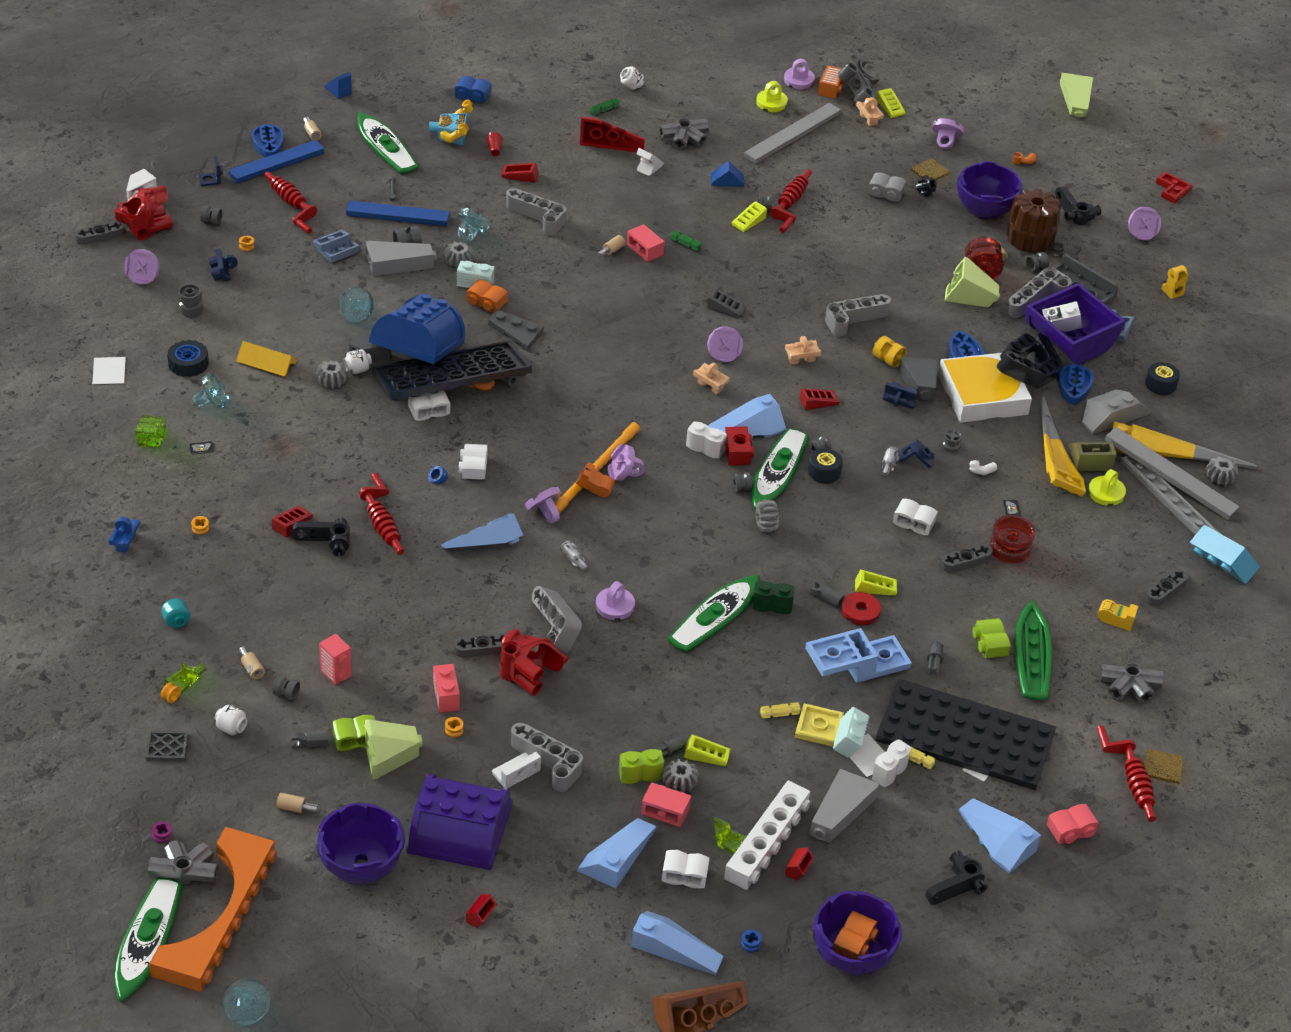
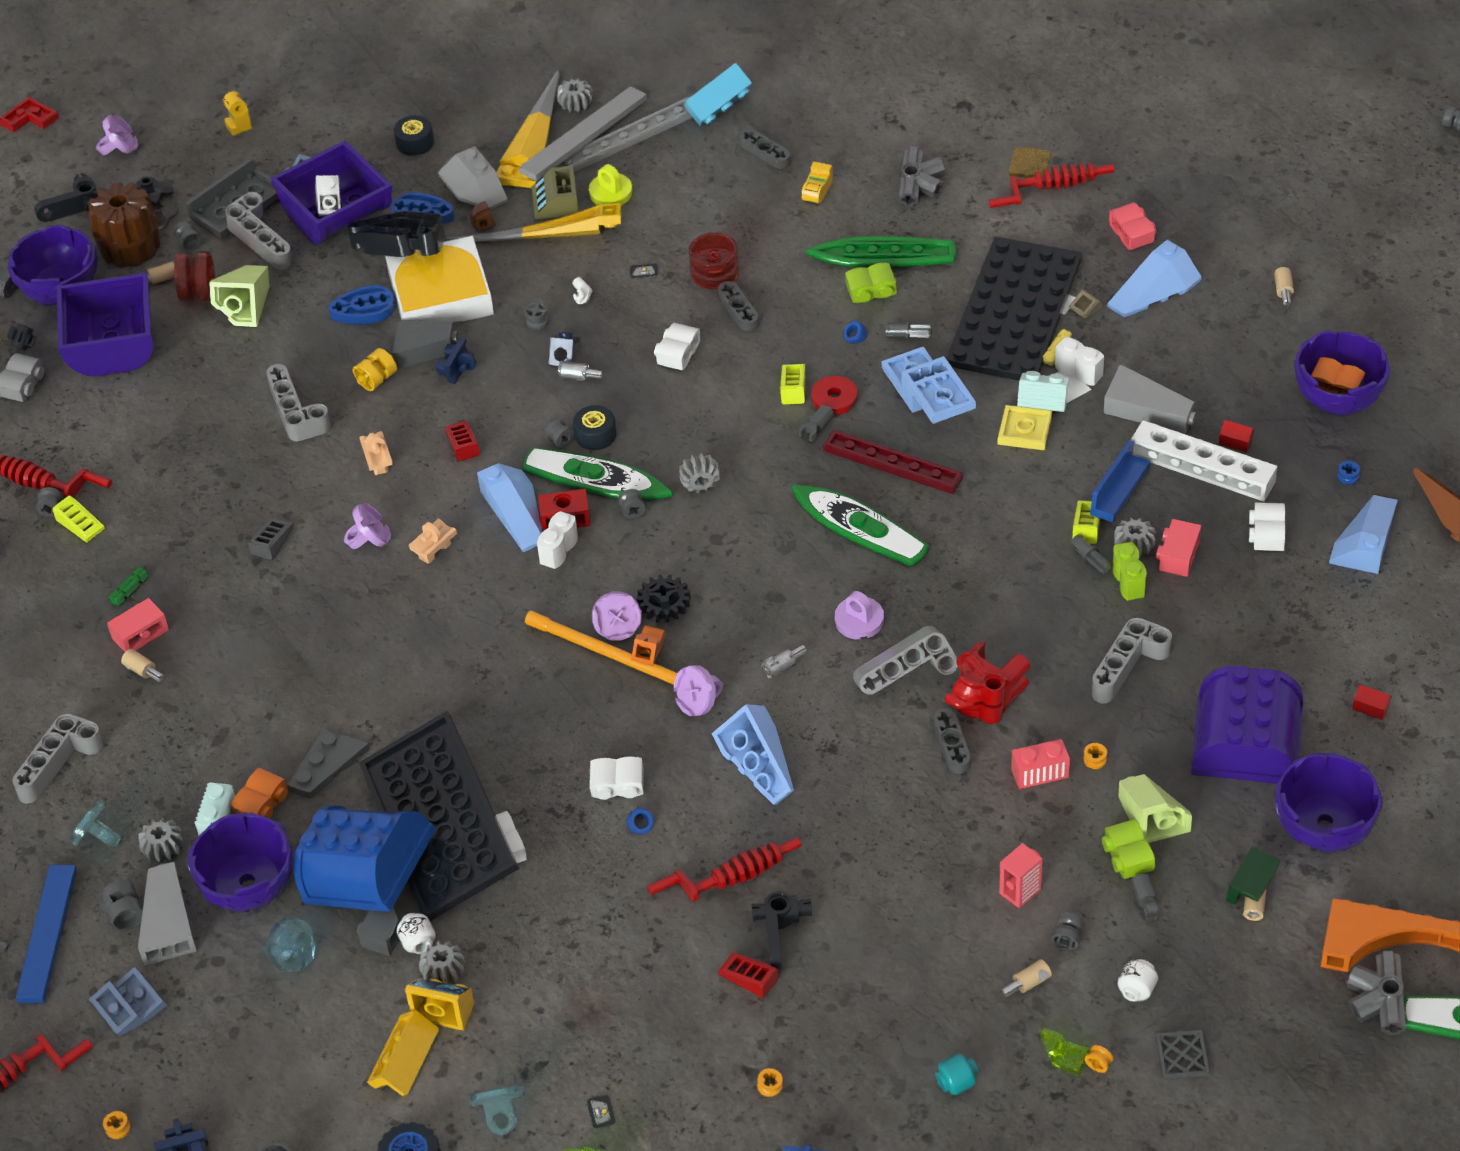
camera: 85 degrees left, 5 degrees up
(161, 838) = (1325, 1040): magenta bush -> none
(297, 368) = (441, 1002): none -> yellow slope
(311, 798) = (1252, 876): none -> dark green panel
(418, 273) = (241, 850): none -> dark purple piece
(517, 769) = (1151, 688): white panel -> none
(617, 854) = (1262, 588): light blue wedge -> none
(643, 494) = (663, 598): none -> black gear
(727, 838) = (1211, 496): clear neon green slope -> none
(741, 769) = (1118, 484): none -> blue panel
(773, 597) = (836, 465): dark green brick -> none
(780, 710) = (1010, 459): light yellow axle -> none
(783, 639) = (893, 461): none -> dark red tile
(928, 213) = (105, 324): none -> dark purple container
(936, 629) = (861, 334): none -> blue piece
(968, 877) = (1227, 303): black piece -> none
(971, 783) = (1085, 304): none -> dark tan slope
(997, 929) = (1284, 284): none -> tan piece
(1067, 415) = (481, 217): none -> reddish brown piece
(1092, 245) = (155, 188): none -> black plate

